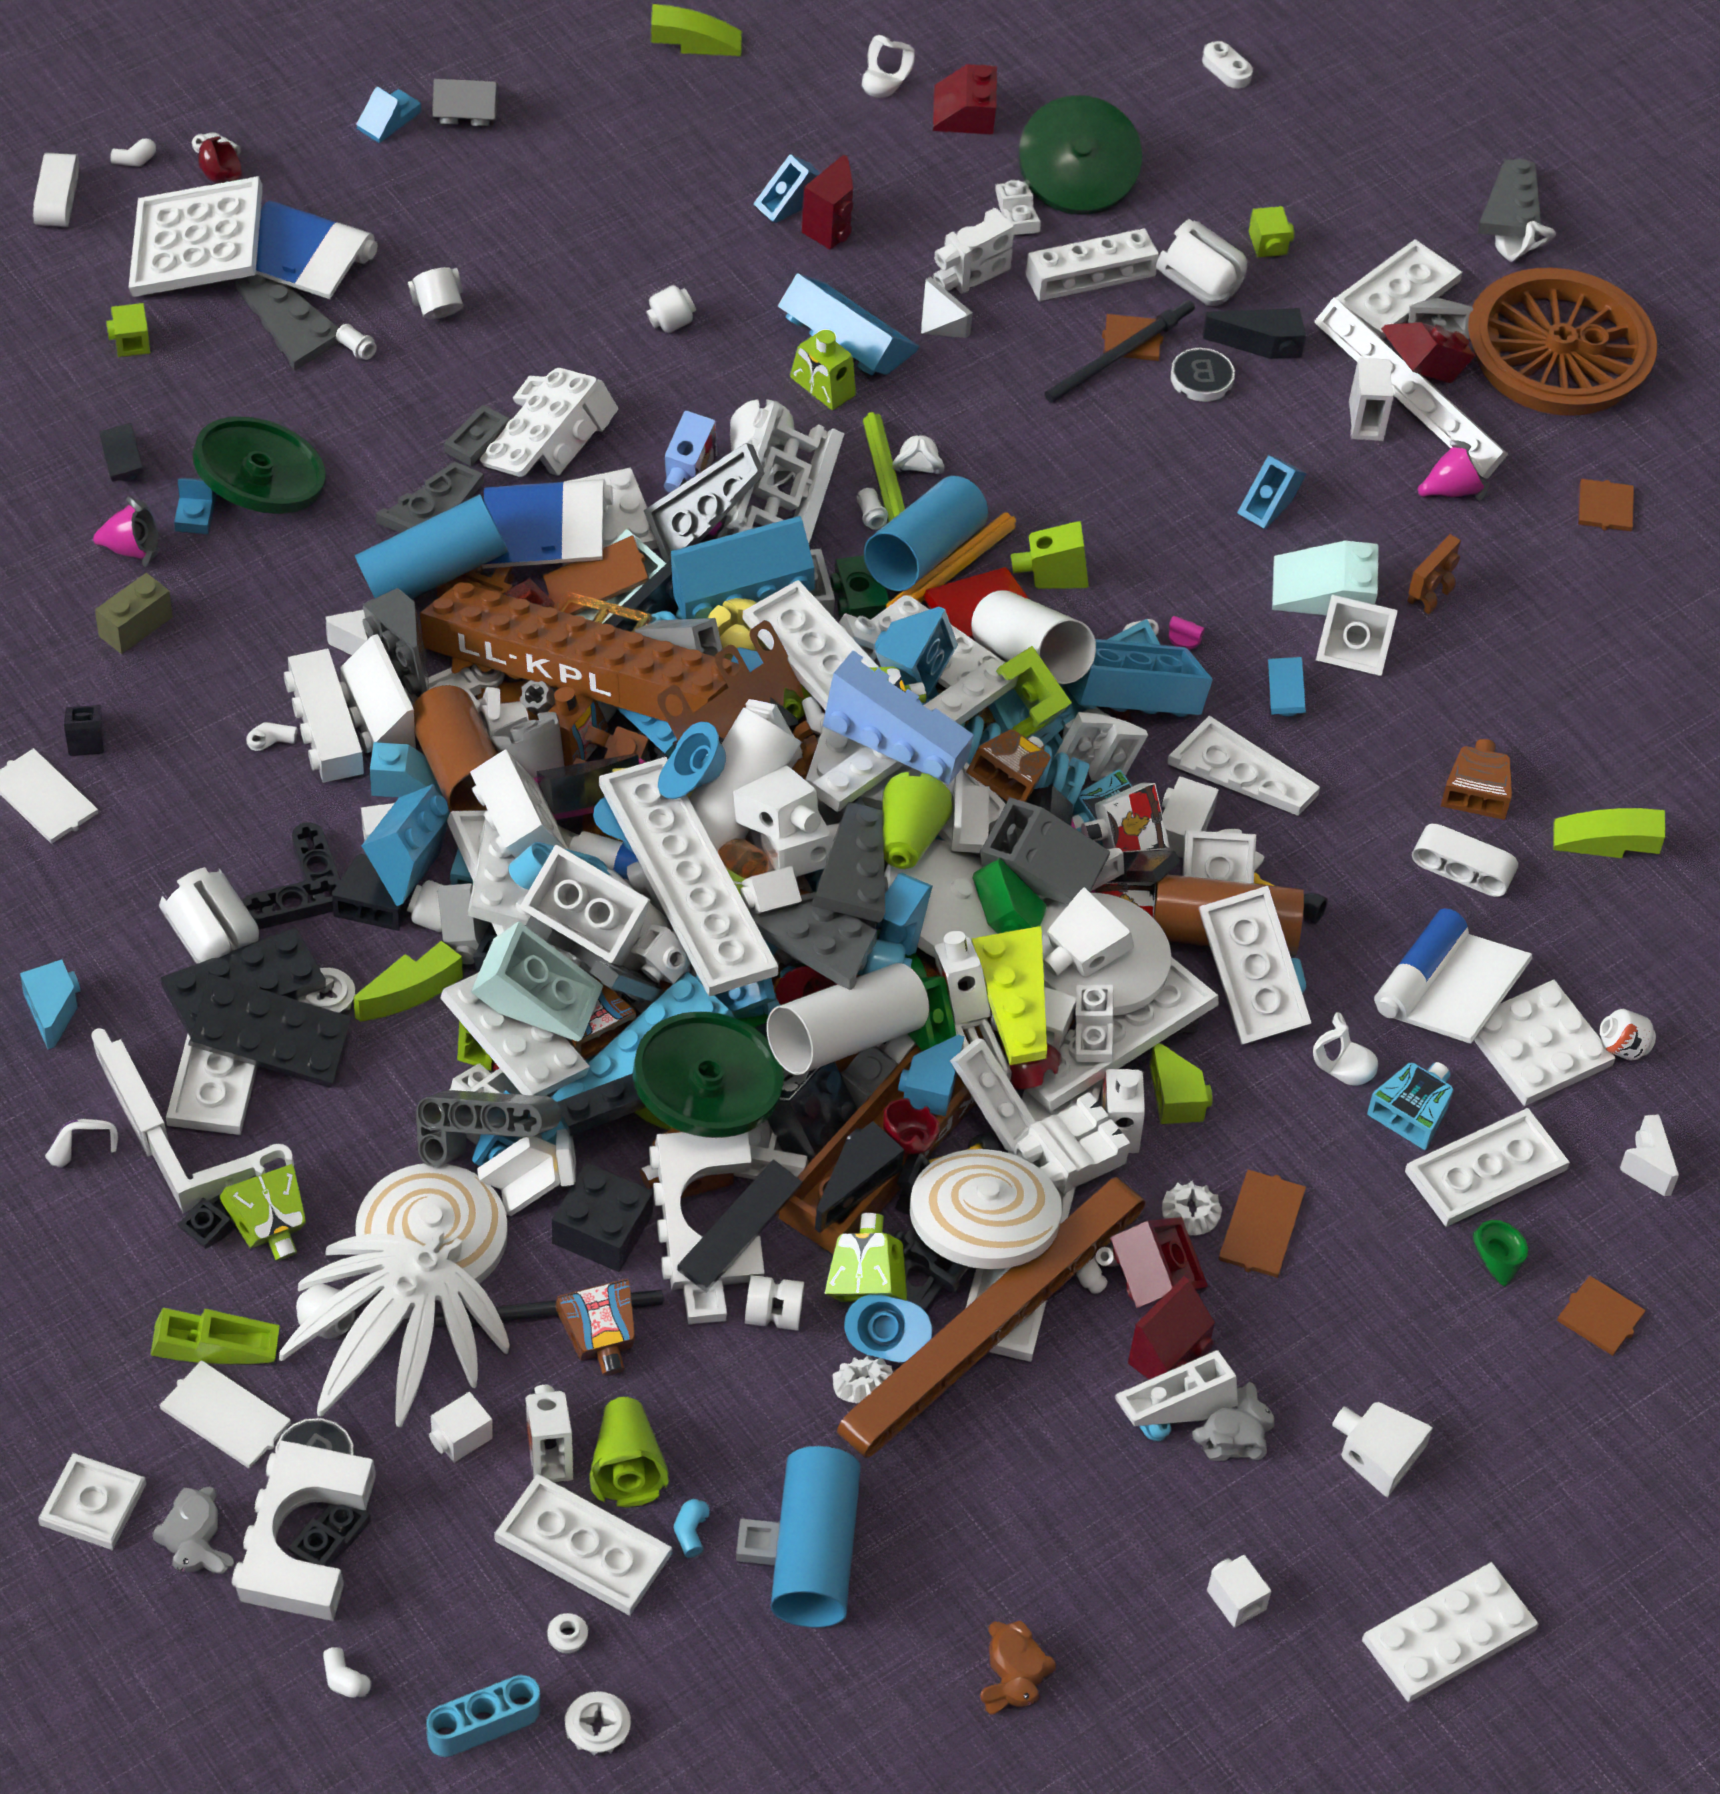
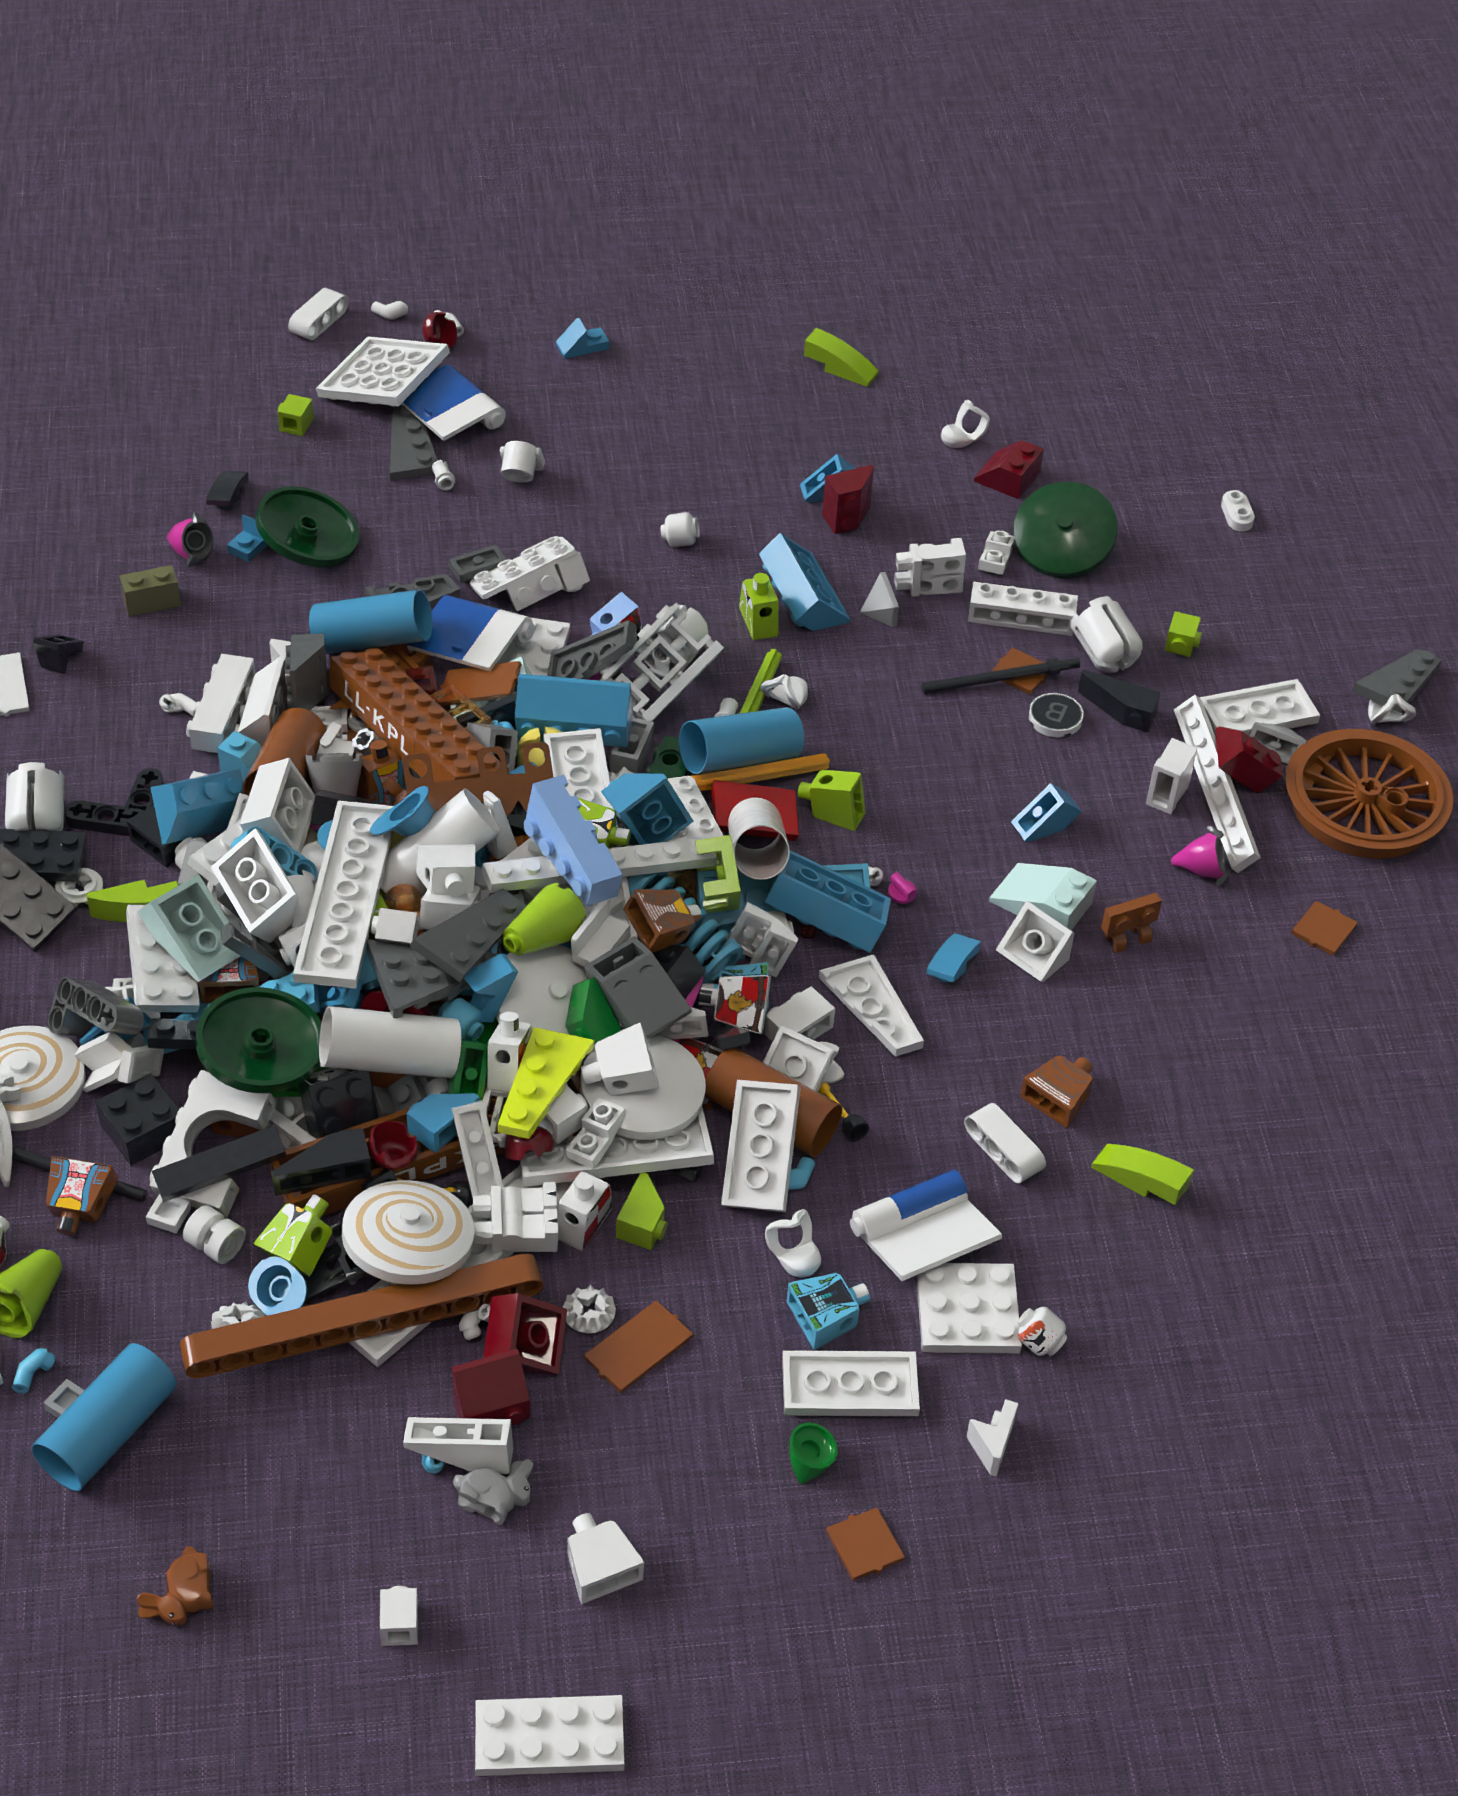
camera: 30 degrees right, 5 degrees down
(465, 101) = (640, 348): light grey slope -> none

